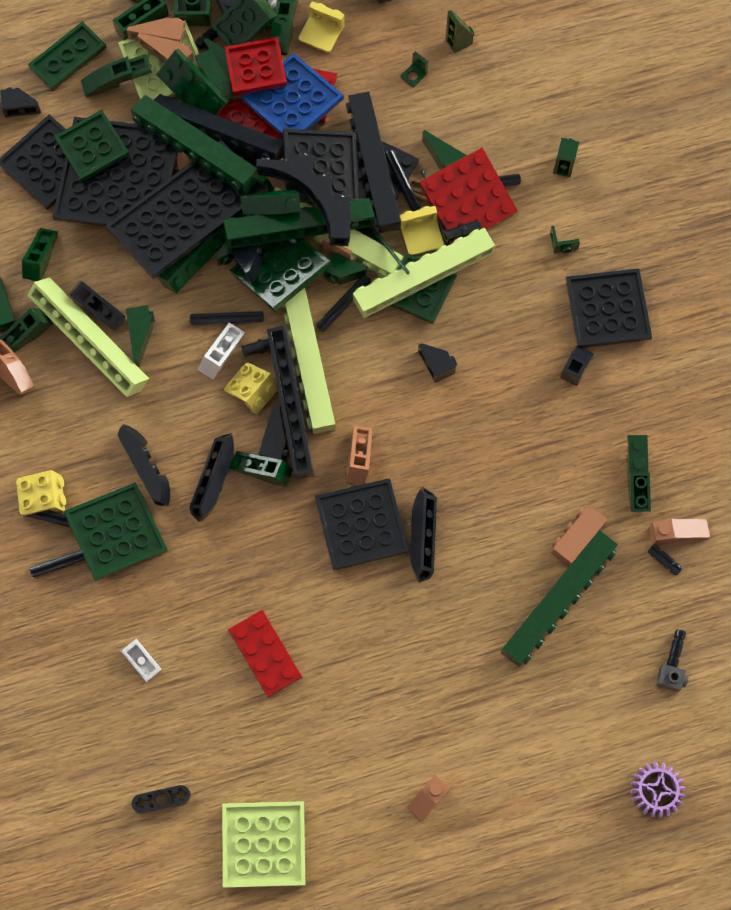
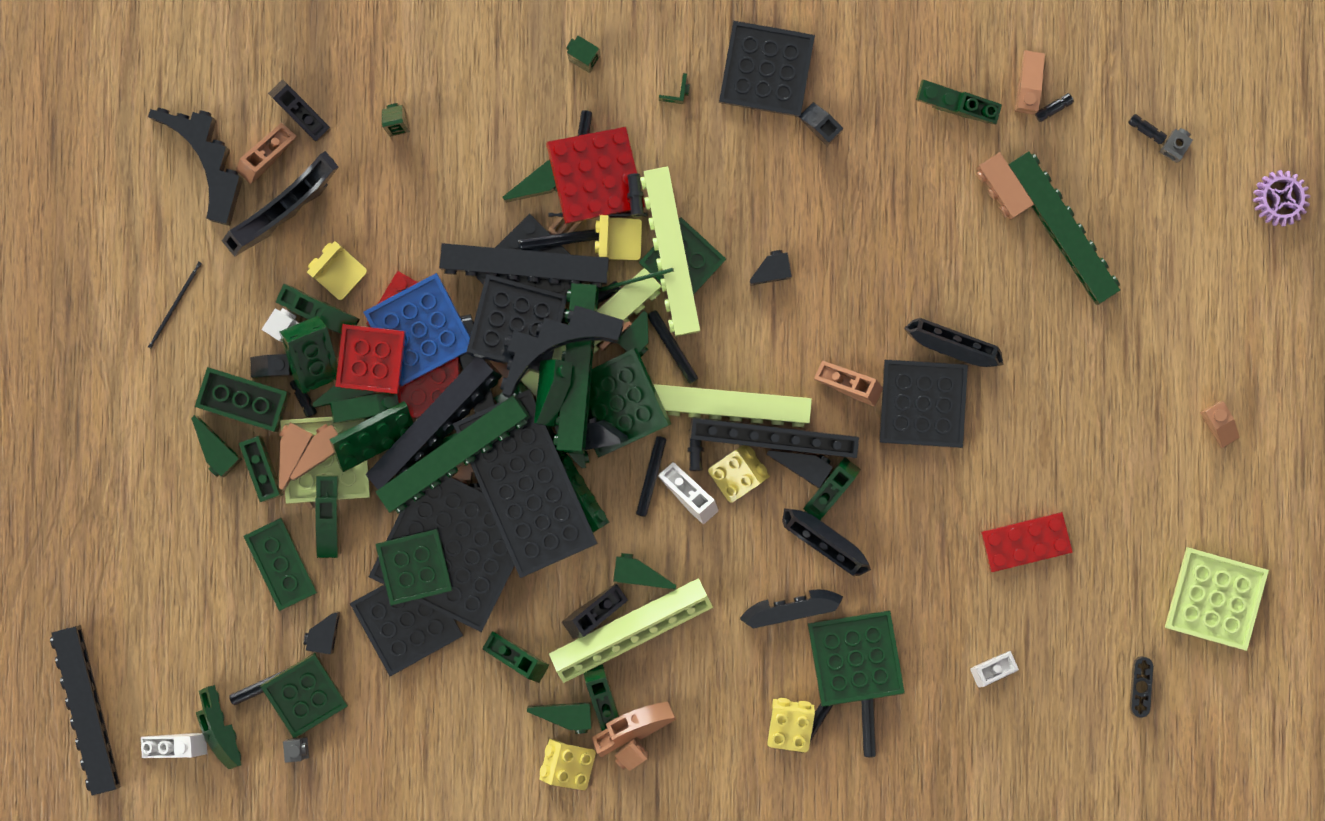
camera: 70 degrees left, 15 degrees up
(419, 66) = (417, 176): dark green bracket -> none

